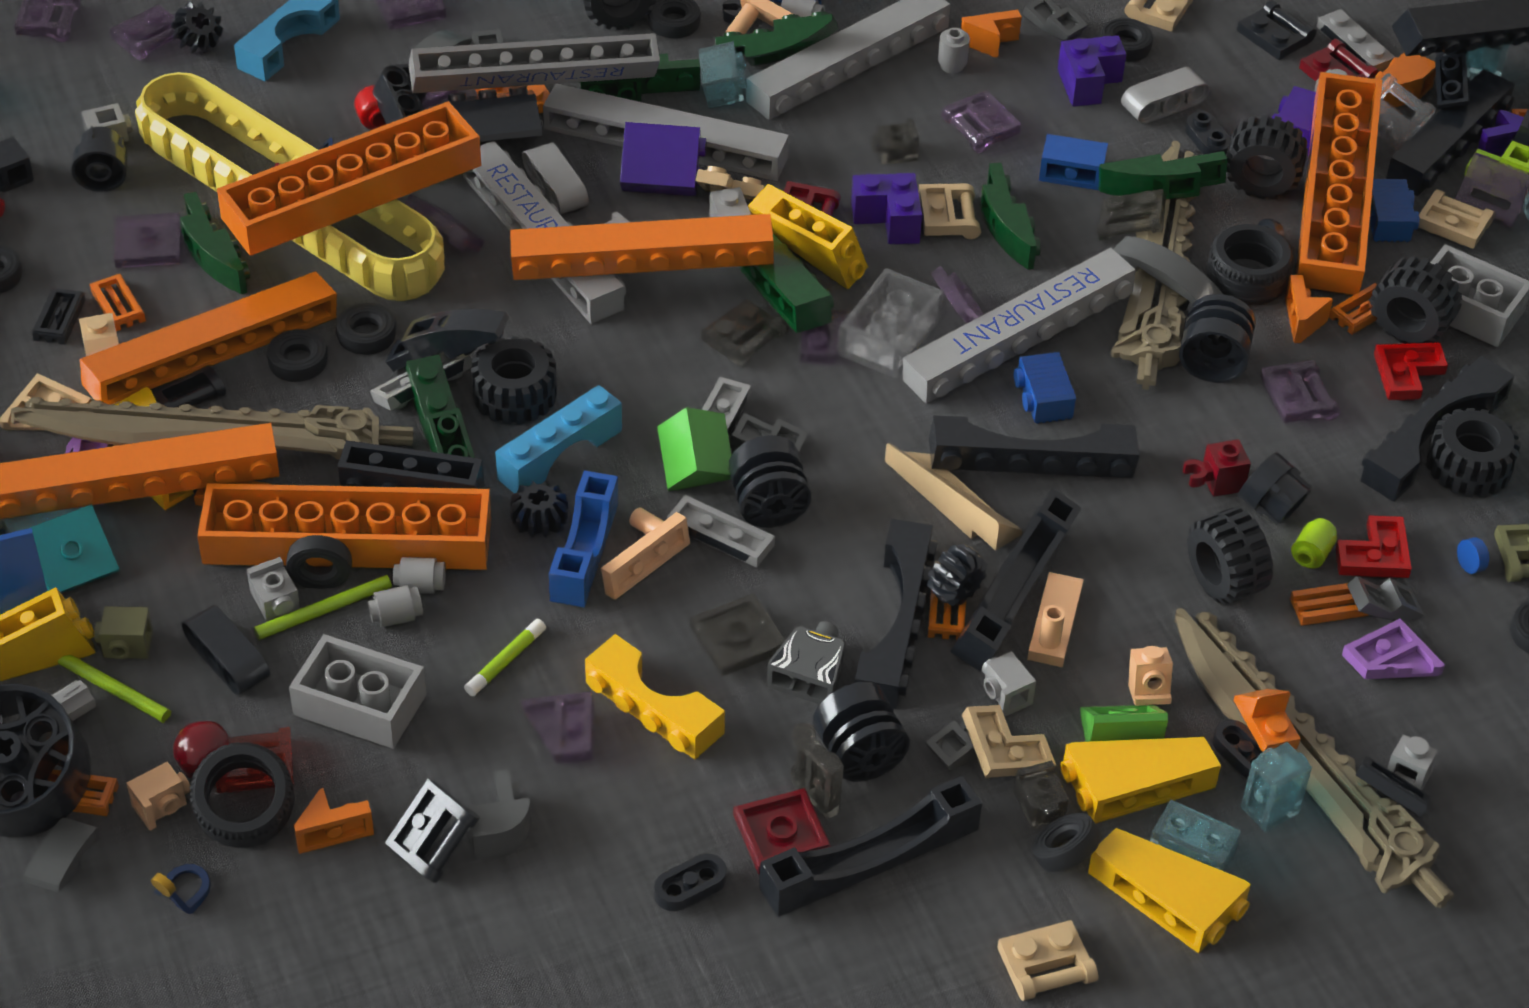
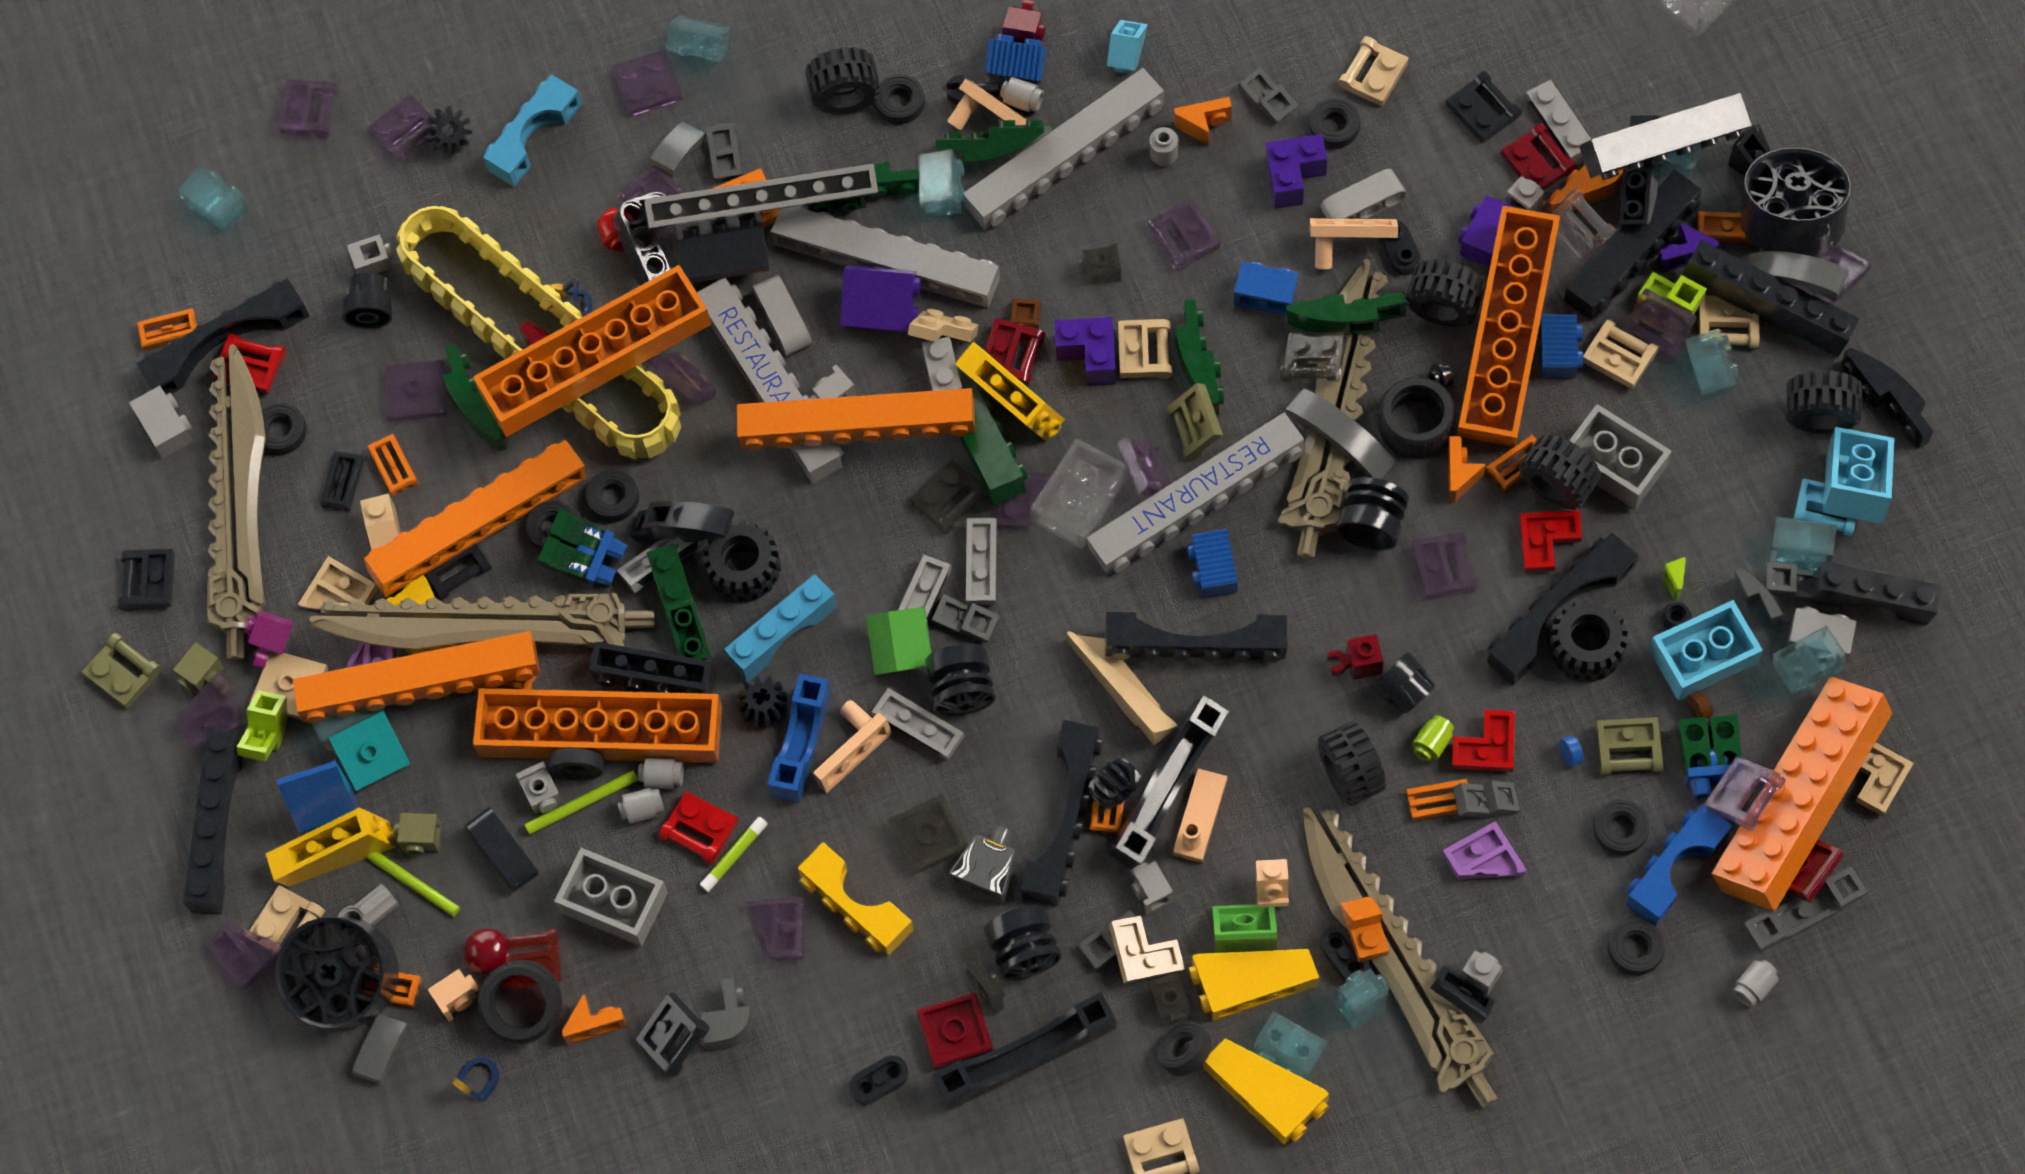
camera: 10 degrees right, 20 degrees up
(329, 368) = (579, 550): none -> hips
(467, 622) = (703, 819): none -> red plate
(784, 384) = (981, 561): none -> light grey plate
(818, 178) = (1026, 312): none -> reddish brown tile
(1017, 256) = (1195, 421): none -> olive plate
(1134, 107) = (1326, 229): none -> light nougat piece

